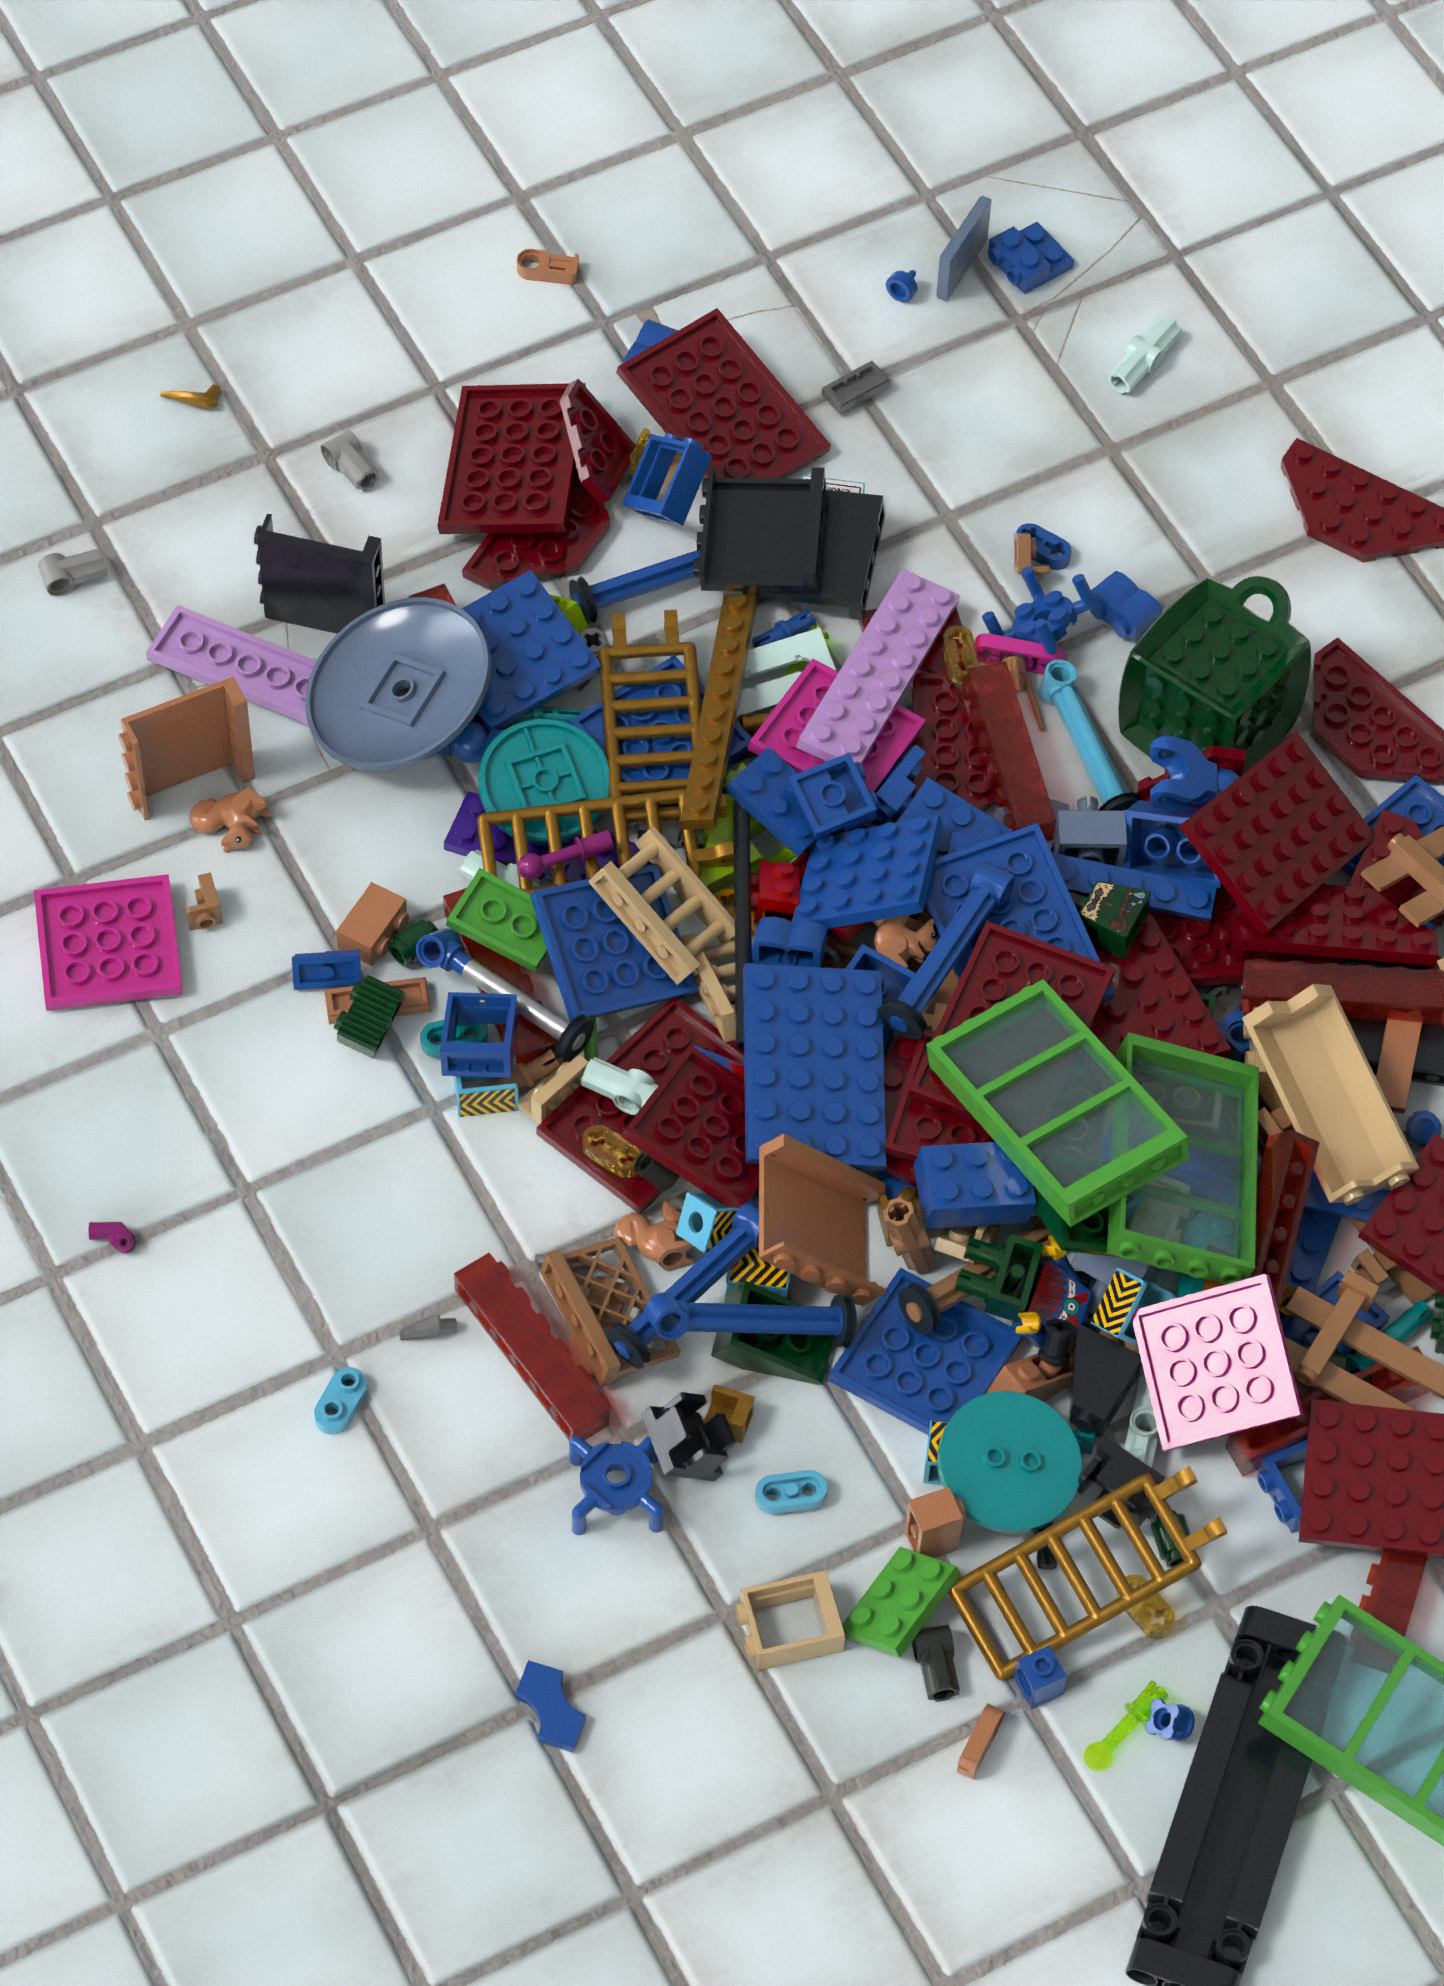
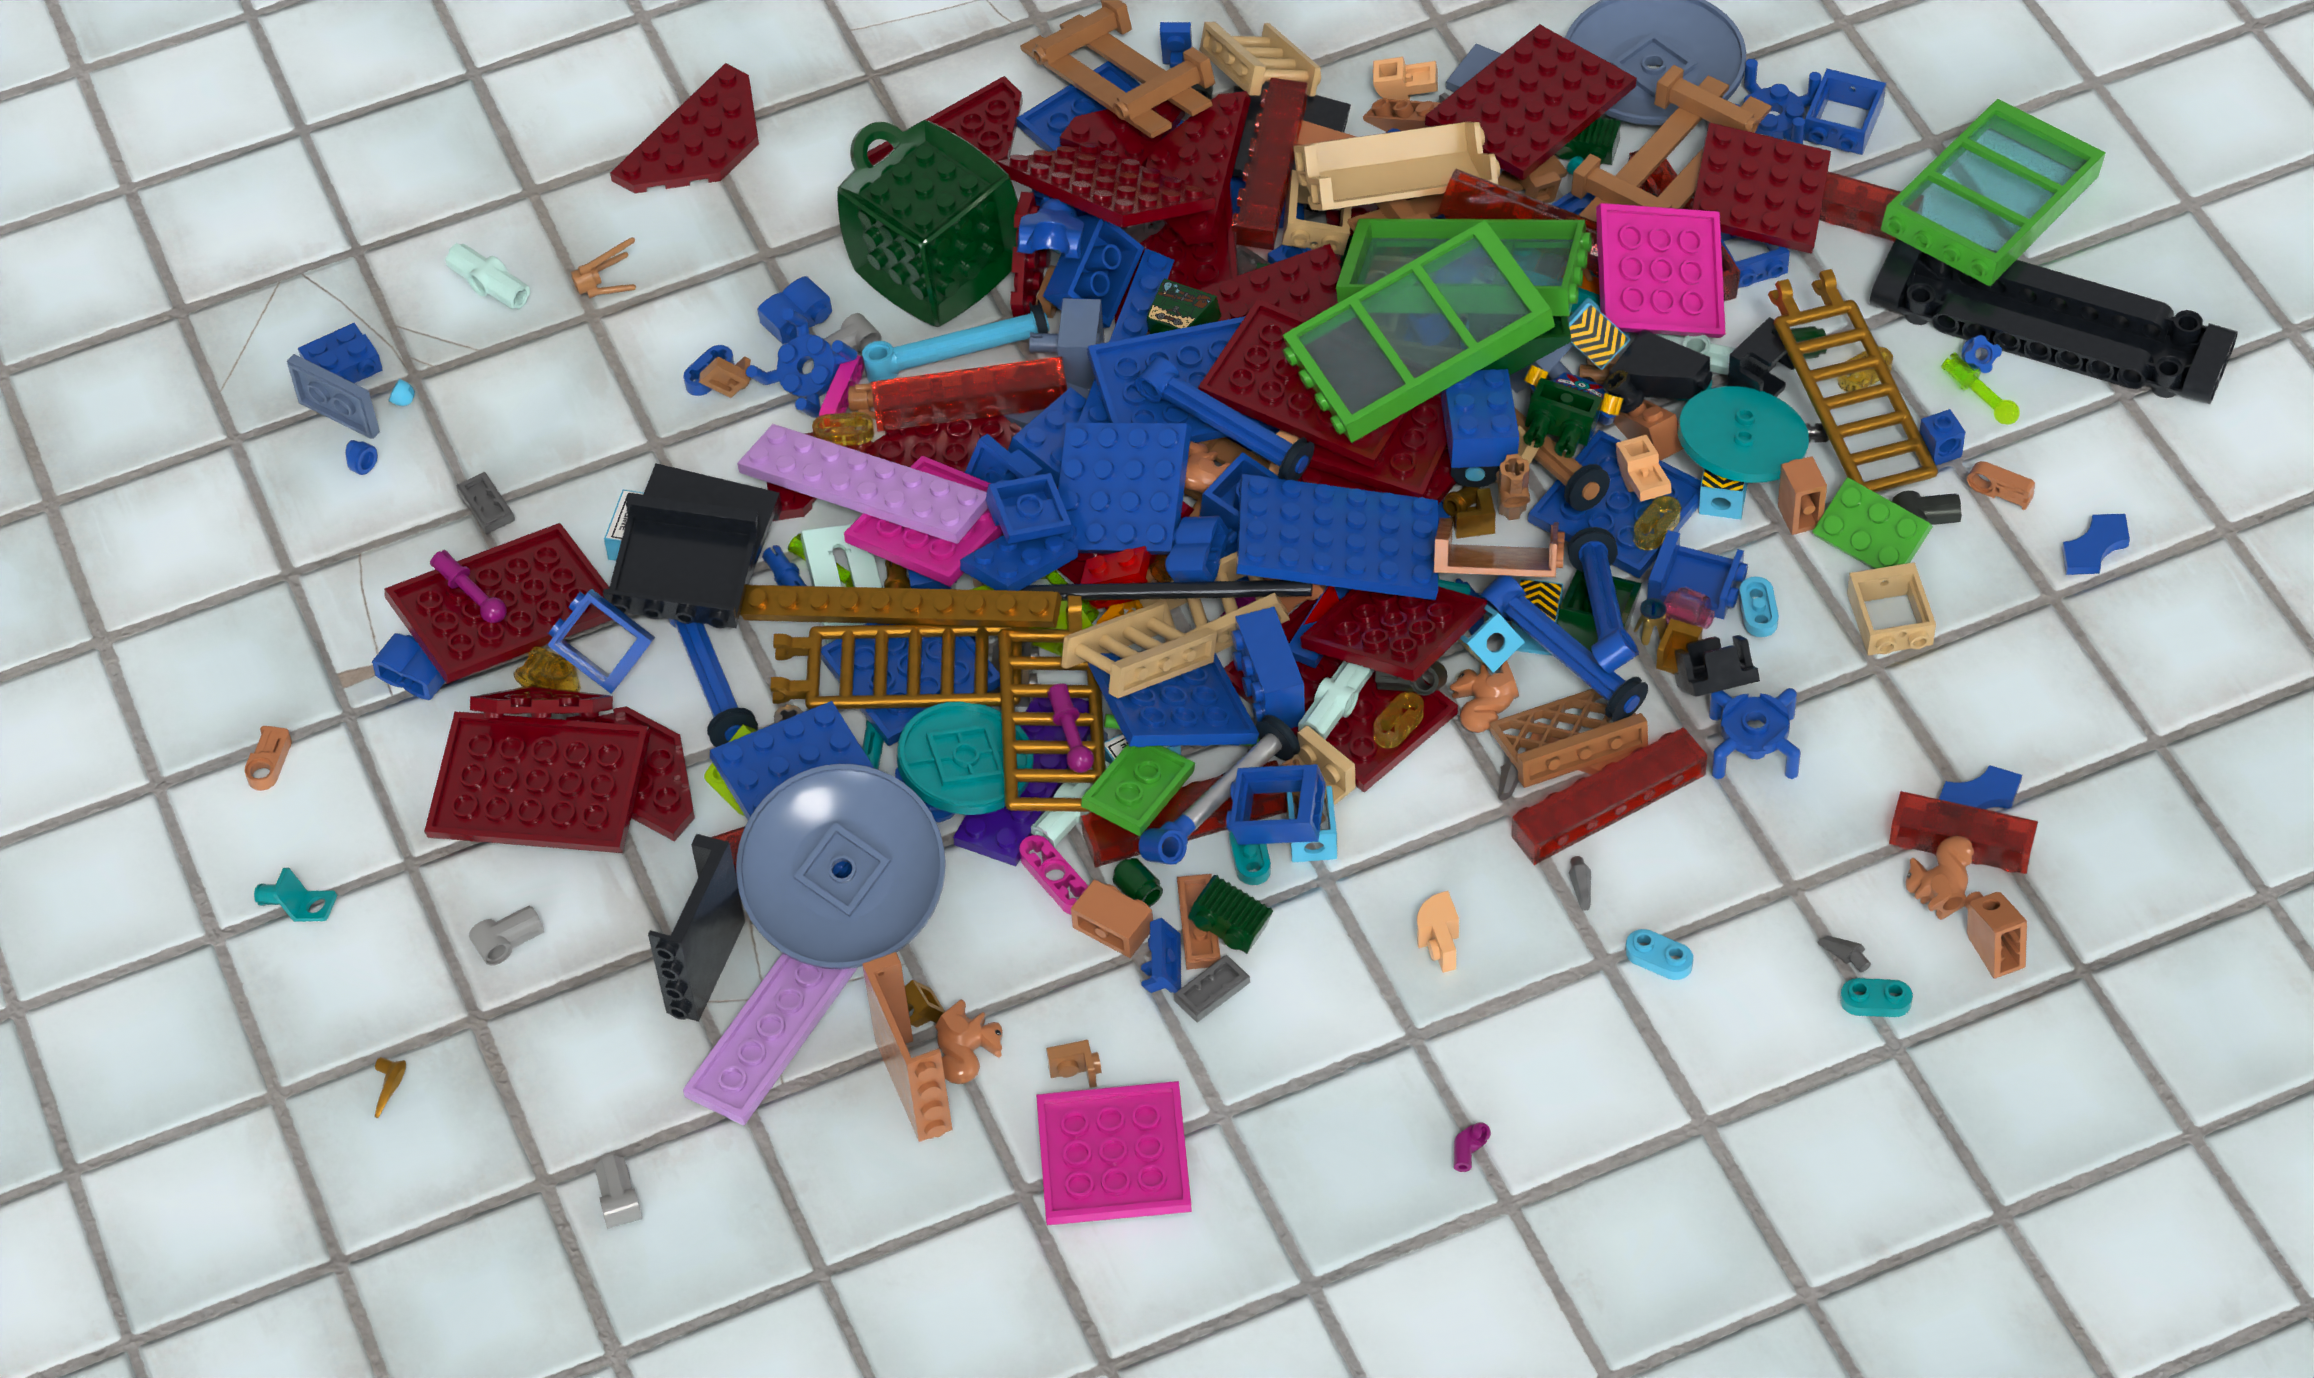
camera: 80 degrees left, 5 degrees down
(275, 780) = (924, 1002): none -> pearl gold tile
(288, 1598) = (1876, 997): none -> teal plate
(293, 1012) = (1211, 988): none -> flat silver plate
(344, 1573) = (1846, 951): none -> flat silver bar
(357, 1705) = (1996, 932): none -> nougat torso
(367, 1196) = (1437, 928): none -> light nougat brick
(387, 304) = (294, 898): none -> teal bracket
(428, 1658) = (1946, 883): none -> nougat animal
(434, 864) = (1052, 860): none -> dark pink beam
(491, 1684) = (1995, 837): none -> clear red brick
(652, 1022) = (1268, 667): none -> blue brick
(703, 394) = (491, 609): none -> magenta pin
(761, 1382) = (1652, 614): none -> piece
(775, 1419) = (1689, 607): none -> clear pink head
(829, 1429) = (1699, 571): none -> blue panel
(888, 1385) = (1651, 519): none -> clear yellow beam
(892, 1830) = (2104, 536): none -> blue tile
(954, 1366) = (1641, 468): none -> light nougat brick
(988, 305) = (402, 393): none -> medium azure hinge
(1093, 660) = (855, 332): none -> light grey piece
(1151, 435) = (587, 276): none -> medium nougat plant

